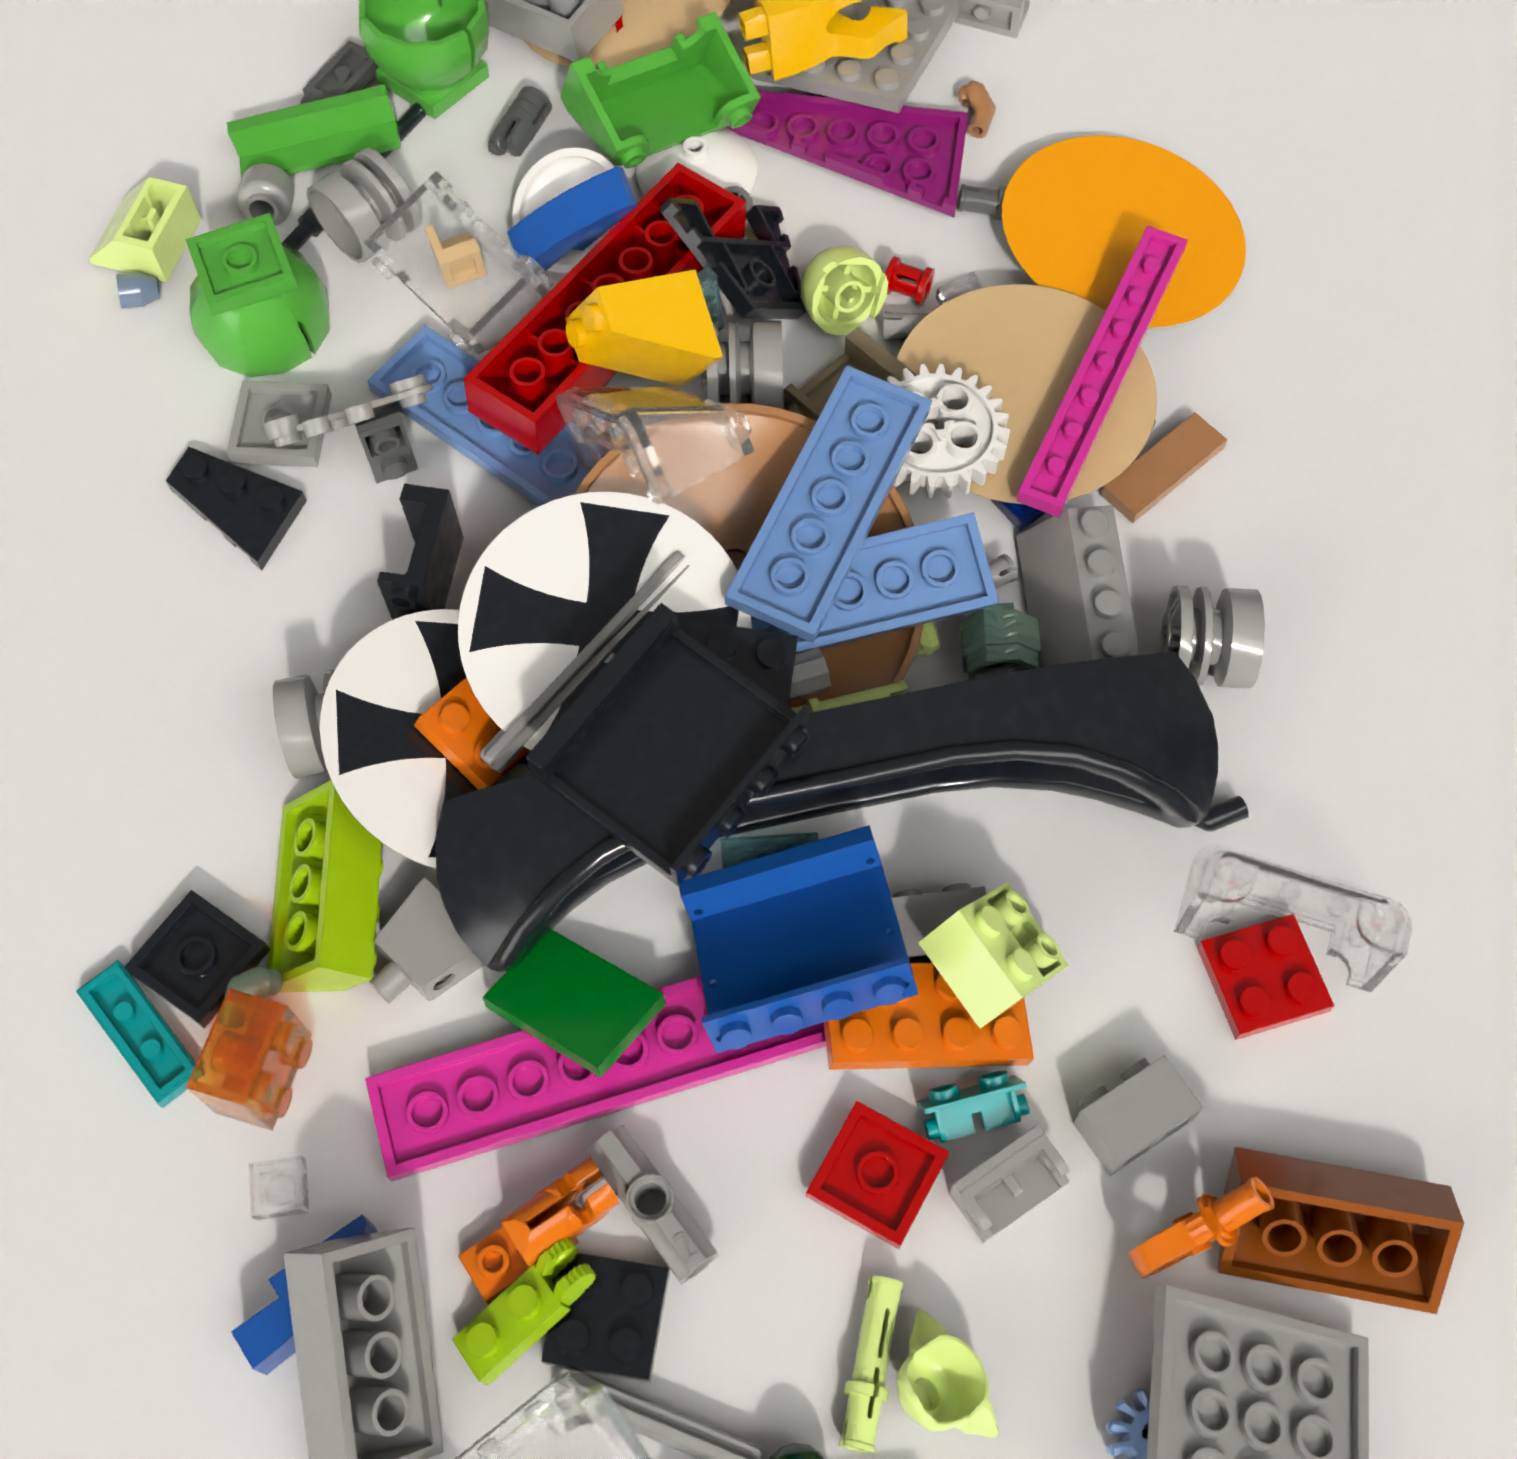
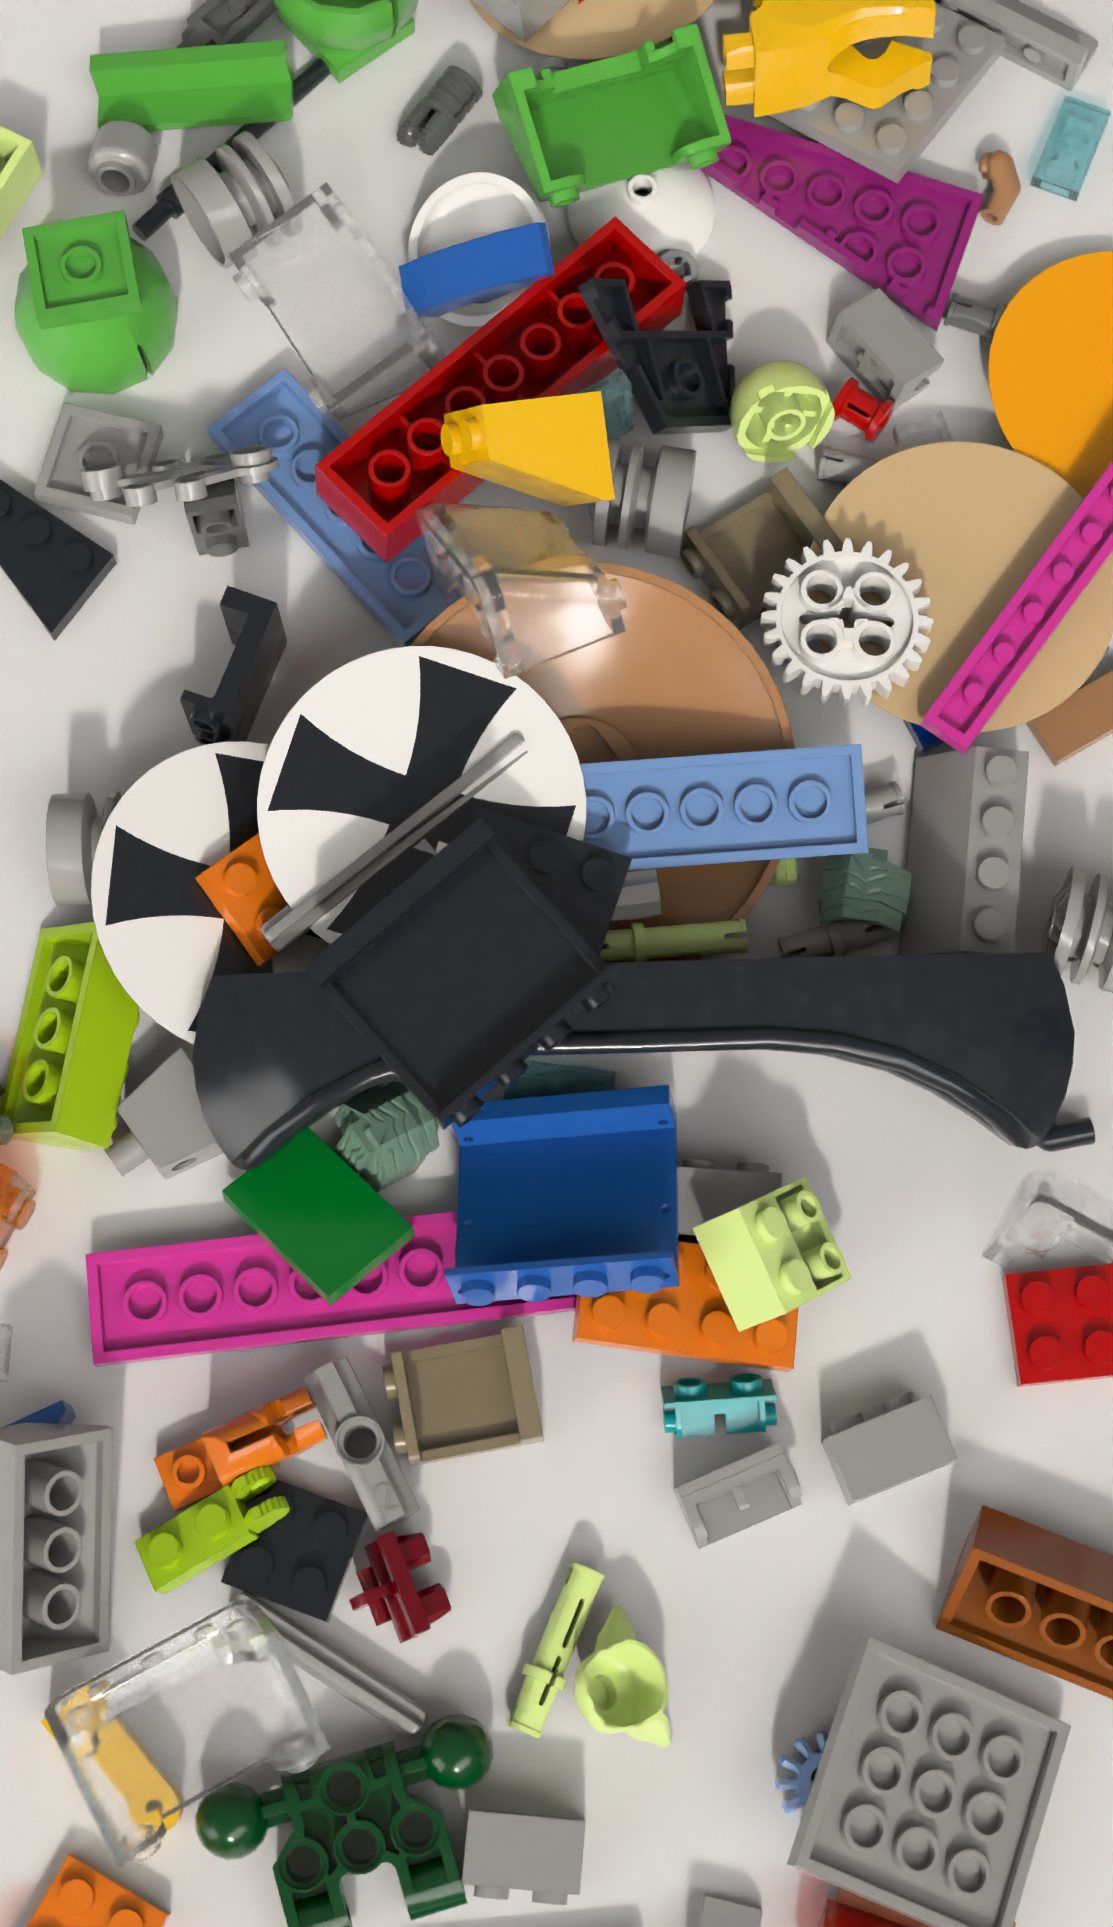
camera: 10 degrees right, 10 degrees up
(457, 258) = (334, 287): tan panel -> none
(623, 921) = (385, 1134): none -> sand green hair
(705, 1334) = (391, 1590): none -> dark red hips
(740, 1143) = (463, 1397): none -> dark tan panel
(828, 504) = (698, 706): medium blue plate -> none
(877, 1174) = (602, 1458): red plate -> none
(914, 233) = (883, 348): none -> light grey hinge
(1027, 74) = (1070, 148): none -> clear light blue plate
(1195, 1232) = (912, 1588): orange pin -> none

